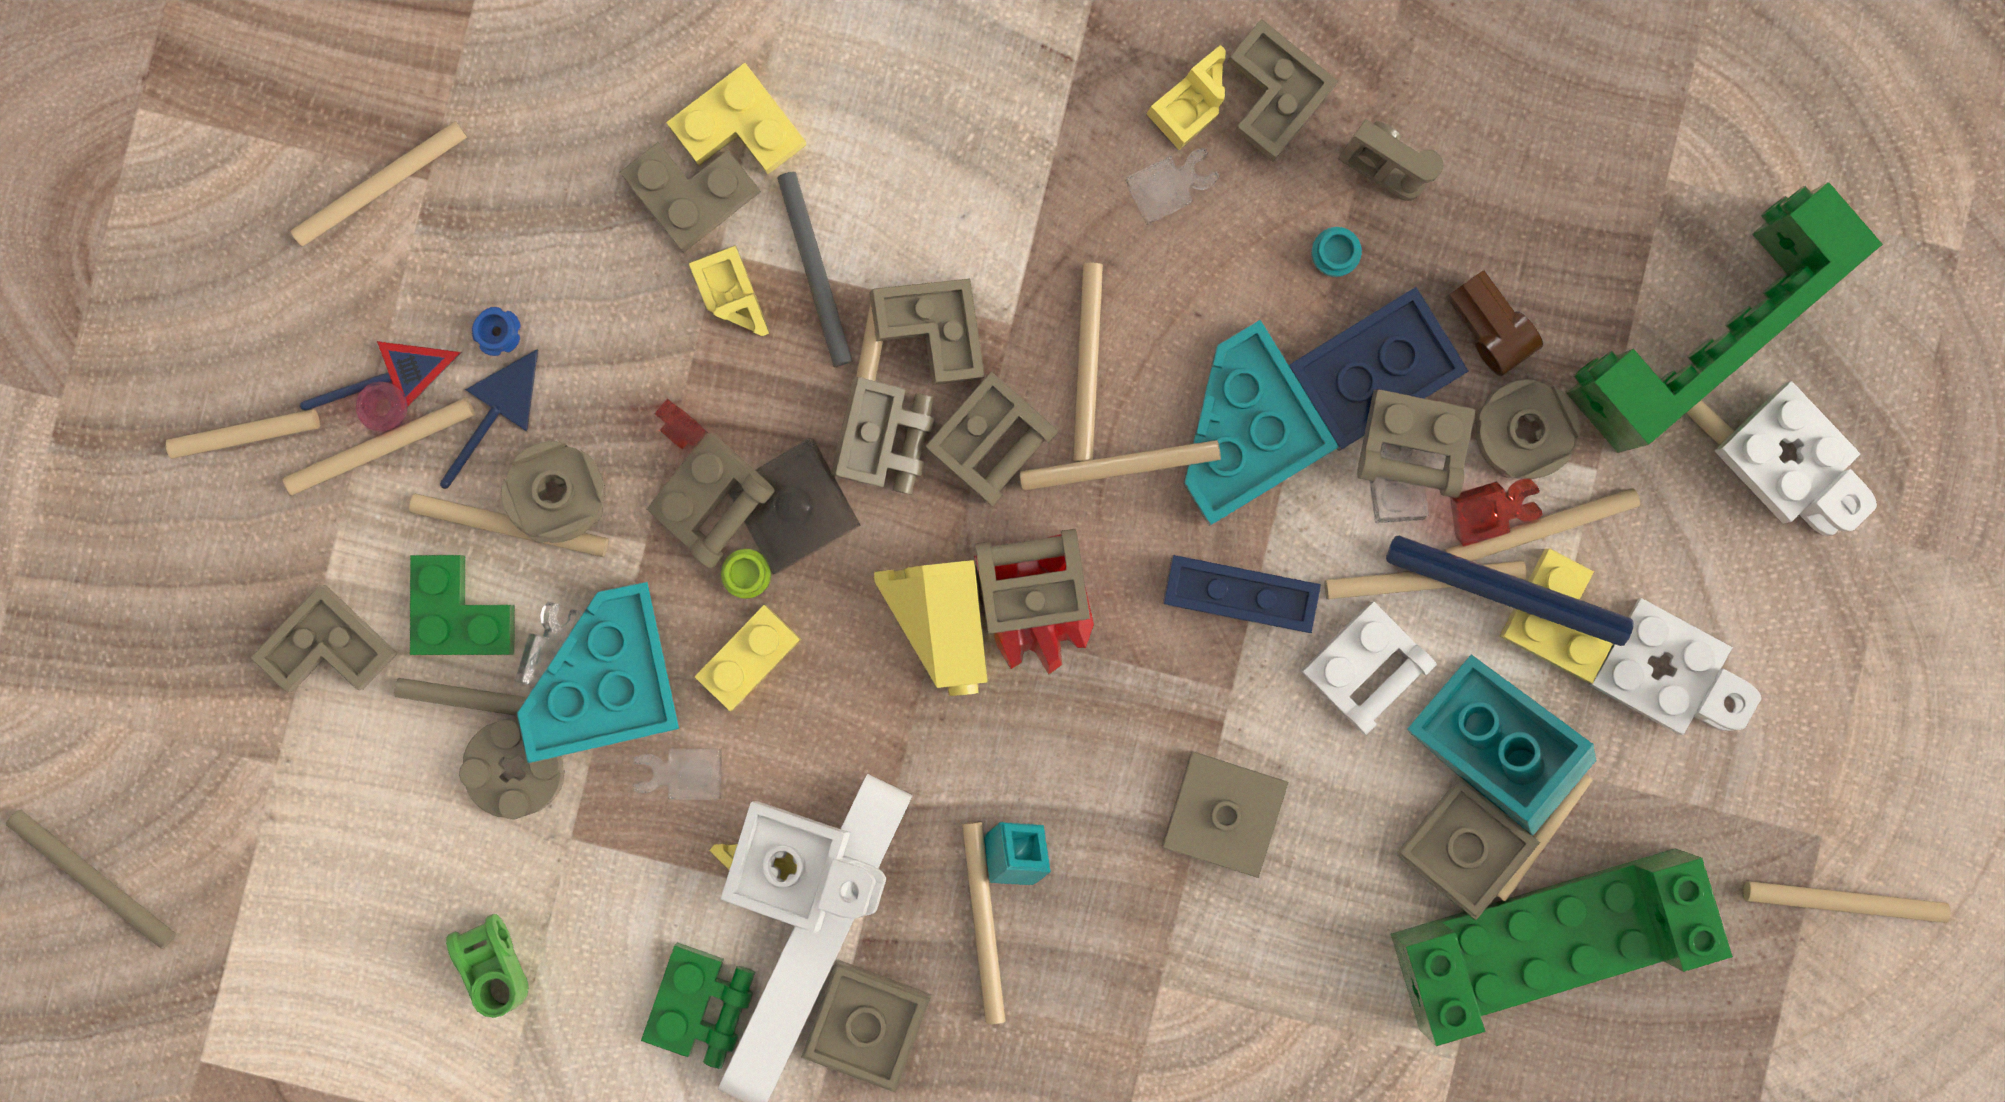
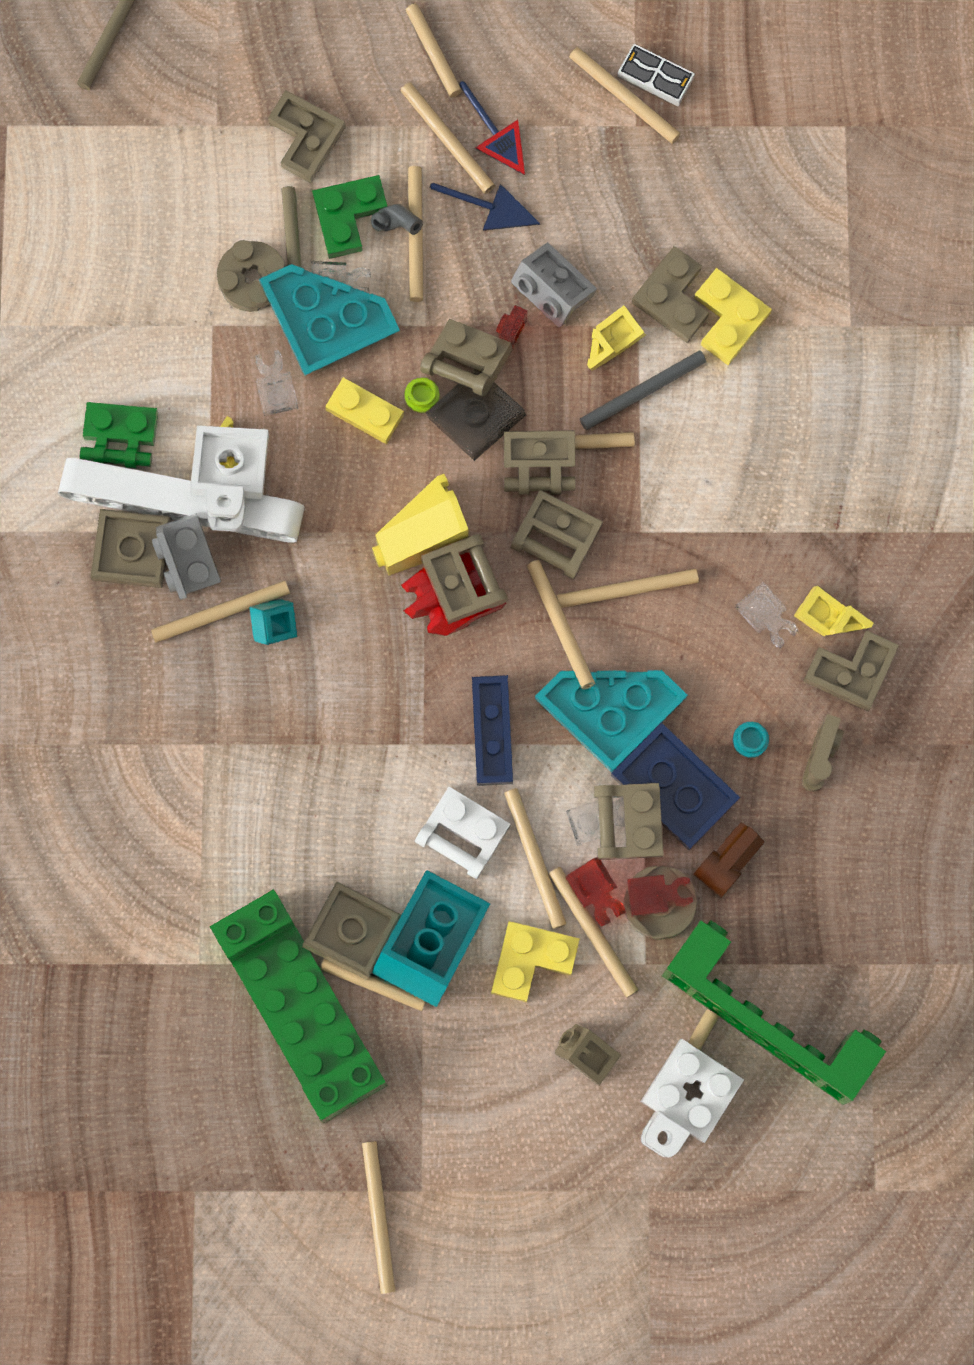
camera: 75 degrees right, 10 degrees down
(360, 132) = (656, 75): none -> tile
(367, 402) = (474, 123): clear pink plate -> none
(479, 547) = (394, 217): none -> dark grey arm
(483, 331) = (548, 185): blue plate -> none
(487, 963) = (121, 289): bright green piece -> none
(527, 481) = (448, 236): dark tan plate -> none
(632, 353) = (552, 284): none -> light grey bracket
(899, 956) = (186, 556): none -> light grey bracket
(940, 313) = (634, 475): dark tan plate -> none
(1225, 814) = (335, 758): dark tan plate -> none
(1510, 590) = (541, 912): dark blue axle -> none
(1527, 440) = (650, 895): none -> clear red plate
(1697, 679) = (508, 1065): white plate -> none
(1703, 578) = (587, 1053): none -> dark tan bracket

